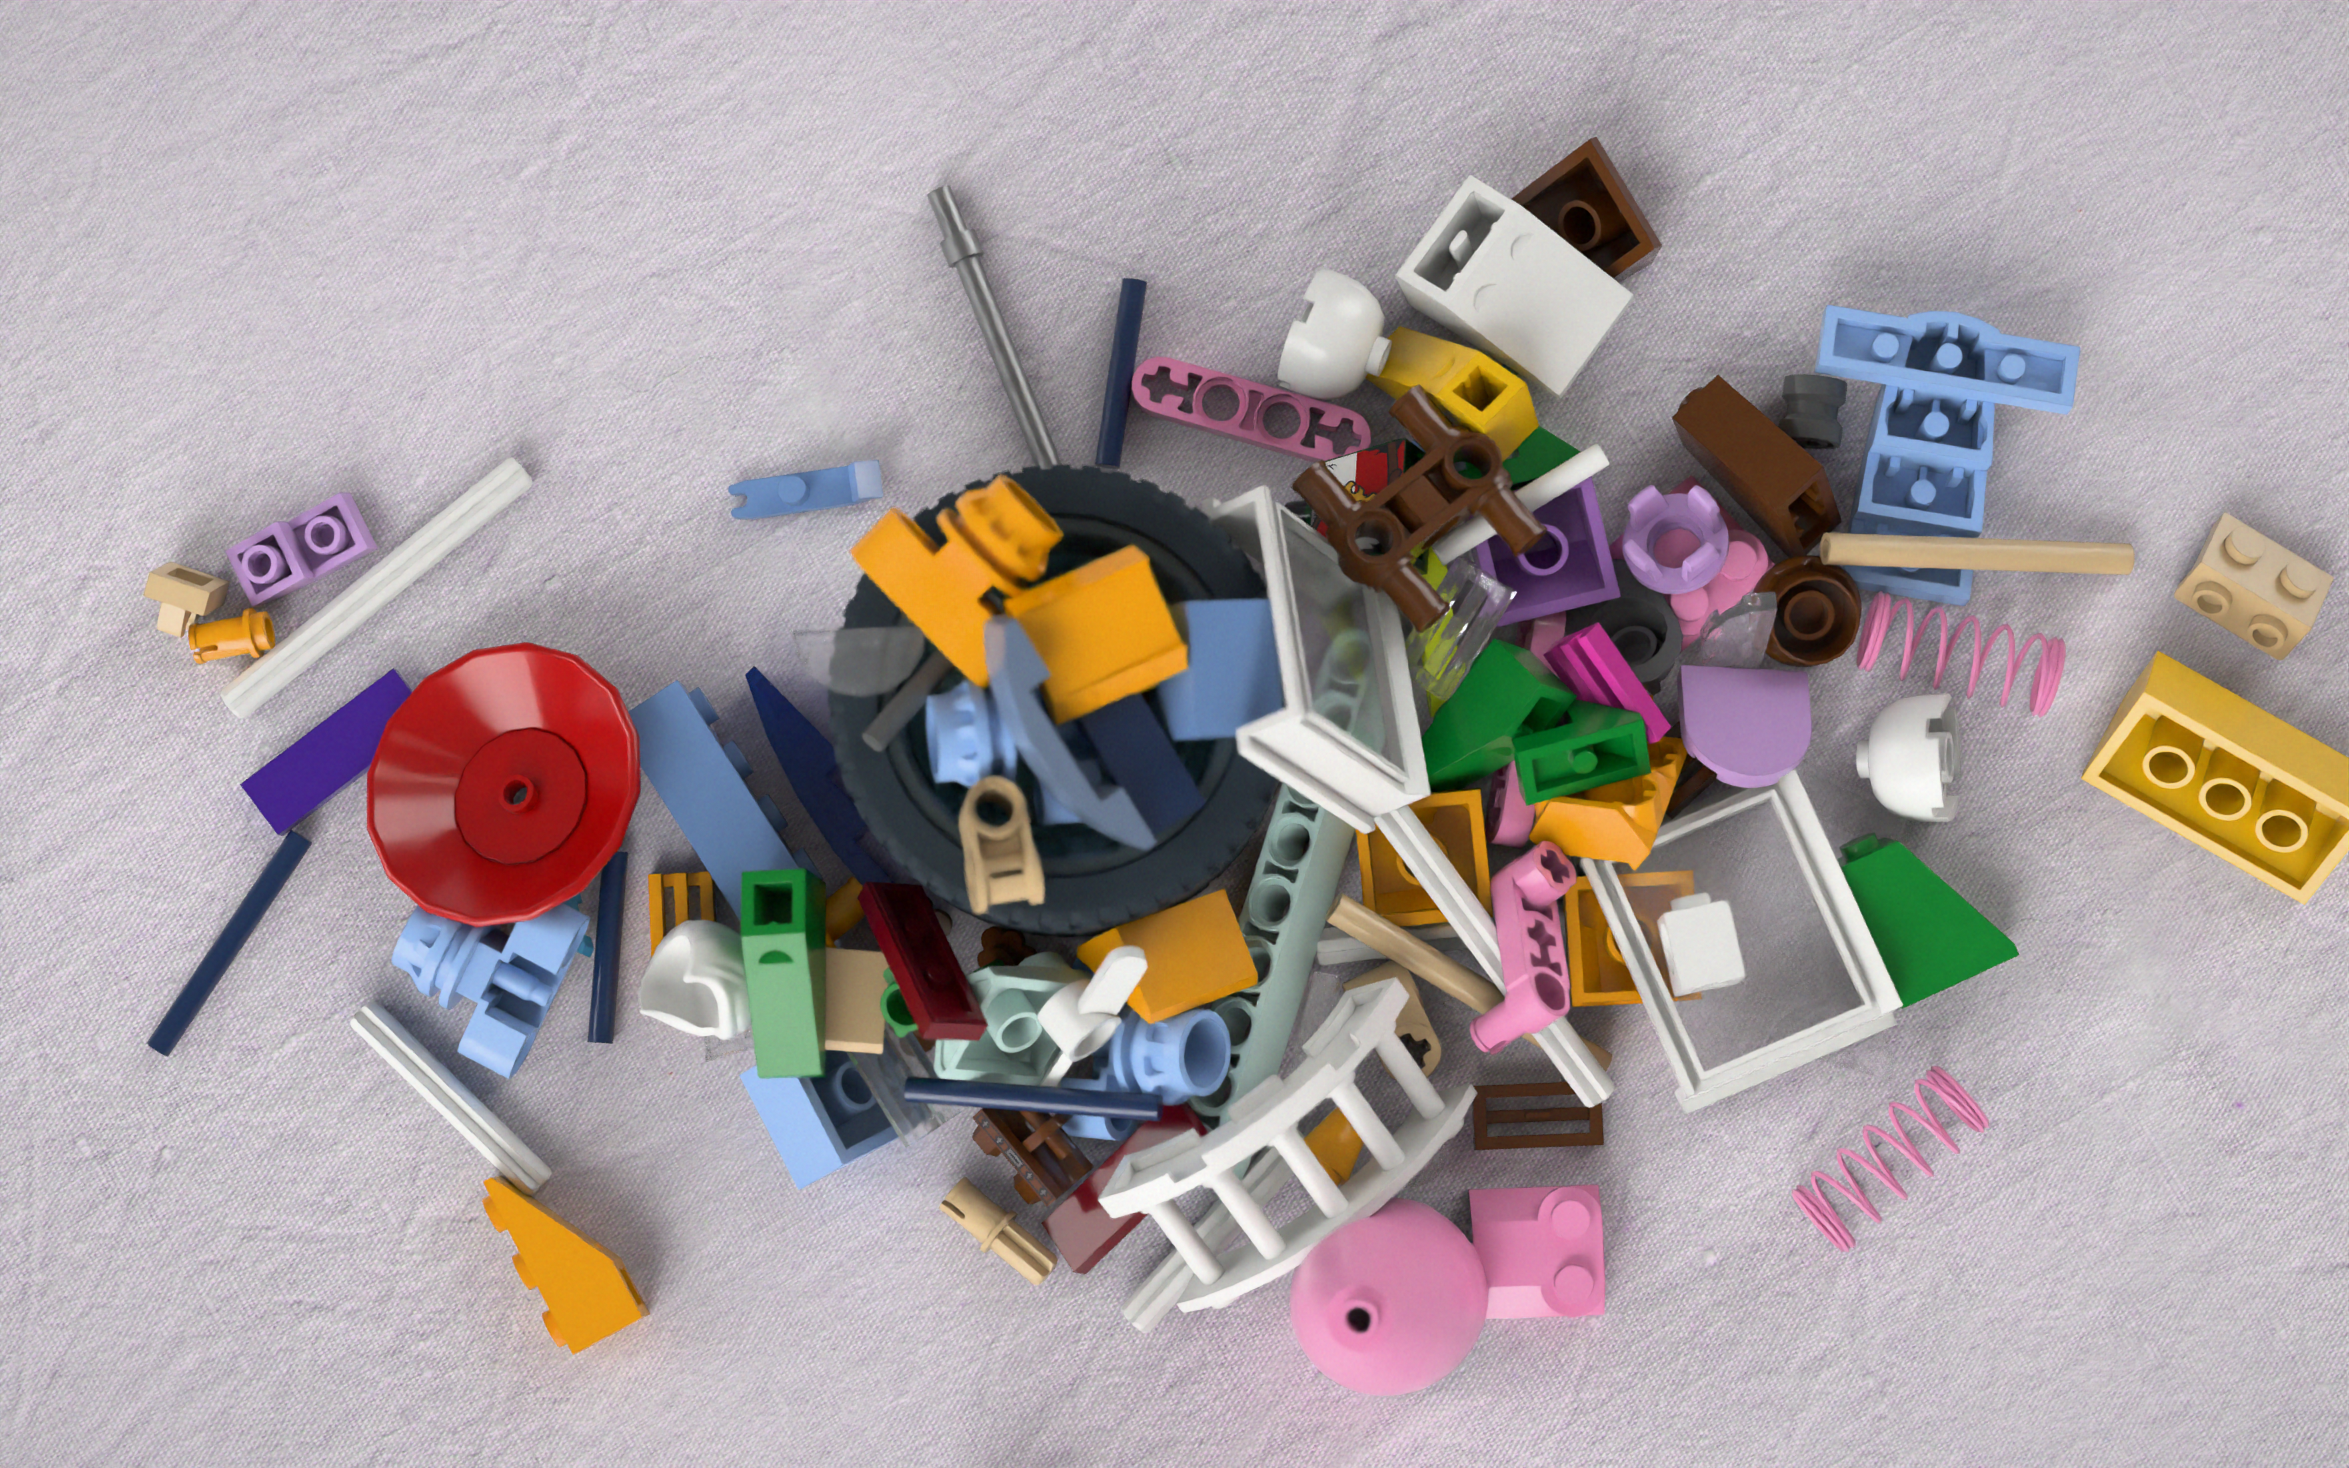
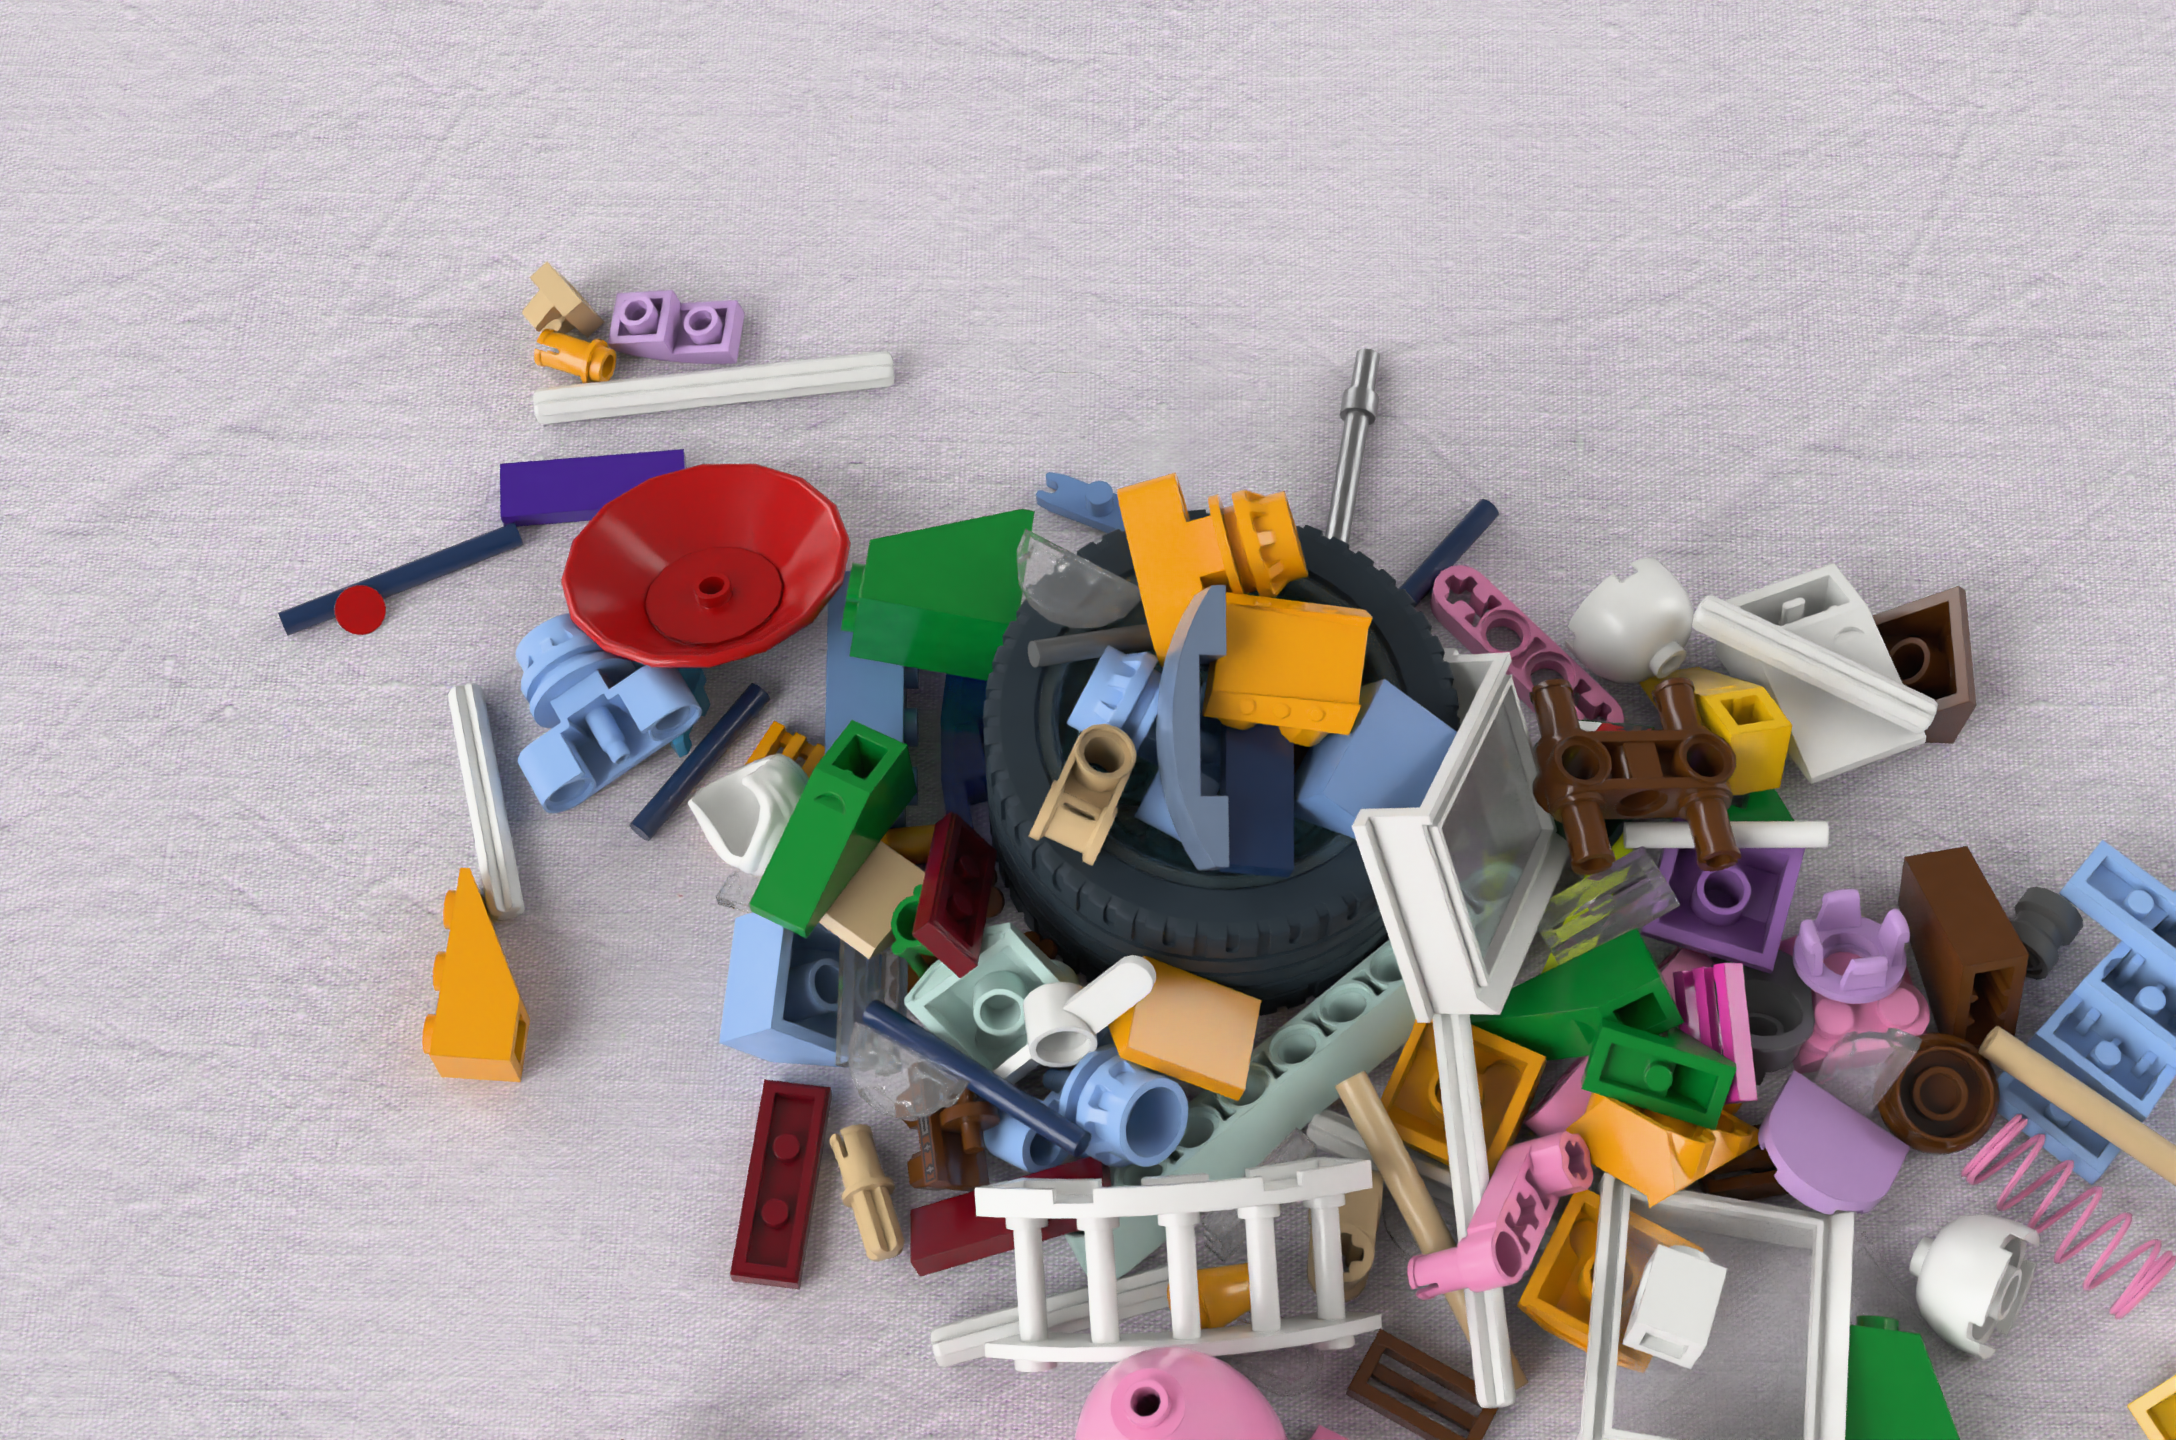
camera: 30 degrees right, 20 degrees down
(216, 995) = (360, 609): none -> red sticker
(740, 702) = (938, 595): none -> green slope
(922, 1265) = (781, 1184): none -> dark red tile
(970, 1137) = (898, 1078): none -> clear tile
(1508, 296) = (1814, 664): none -> white axle

